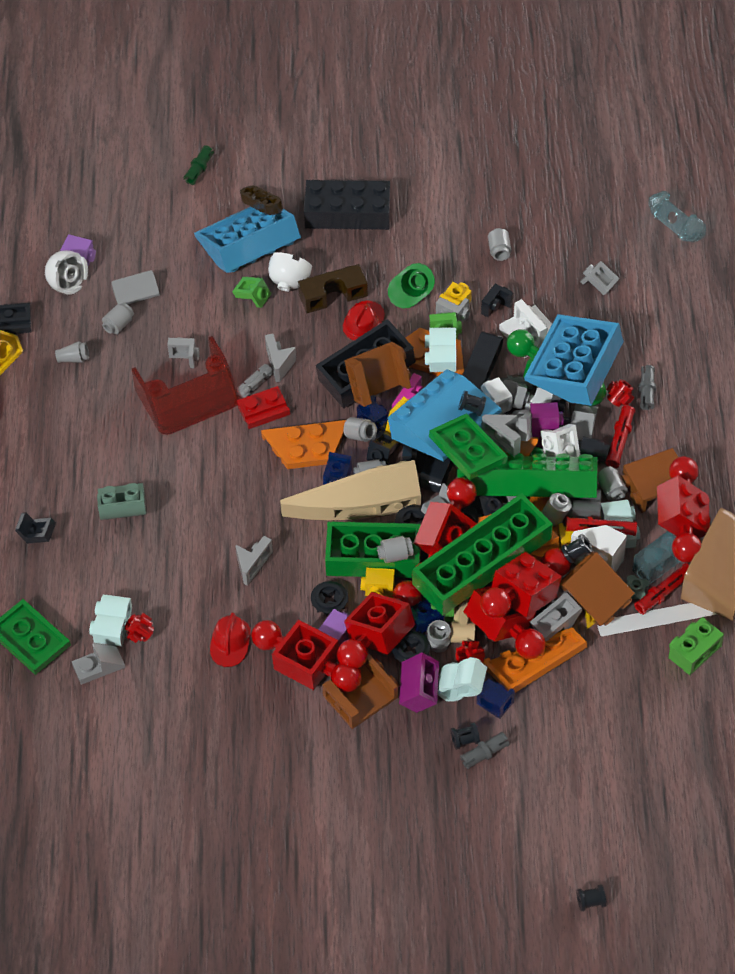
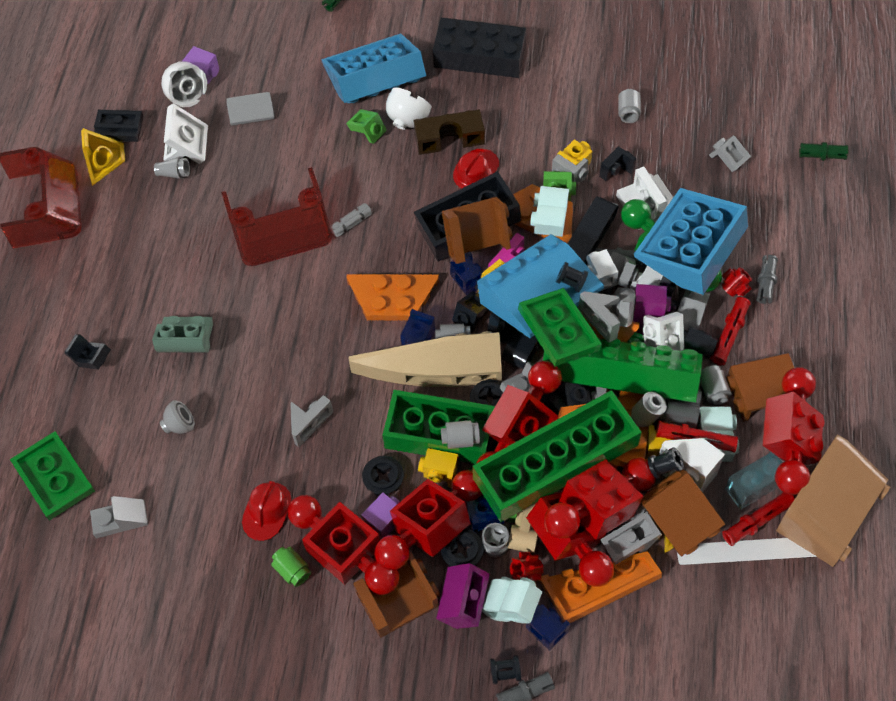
camera: 10 degrees right, 5 degrees up
(78, 321) = (184, 135): none -> white bracket
(110, 620) = (143, 469): light aqua brick -> none
(117, 318) = (225, 137): light grey brick -> none
(132, 574) = (177, 418): none -> light grey brick
(139, 628) = (169, 482): red gear -> none
(184, 348) = (285, 177): light grey bracket -> none
(261, 200) = (393, 33): dark brown beam -> none
(263, 407) = (354, 249): red plate -> none
(263, 681) = (290, 566): none -> bright green brick
(280, 359) = (381, 200): light grey slope -> none
(359, 429) = (449, 287): light grey brick -> none
(411, 285) = (530, 138): green piece -> none
(641, 583) = (734, 509): sand green plate -> none
(685, 266) = (823, 151): none -> dark green pin
(687, 228) = (829, 110): clear light blue piece -> none
(695, 645) = (787, 595): bright green brick -> none

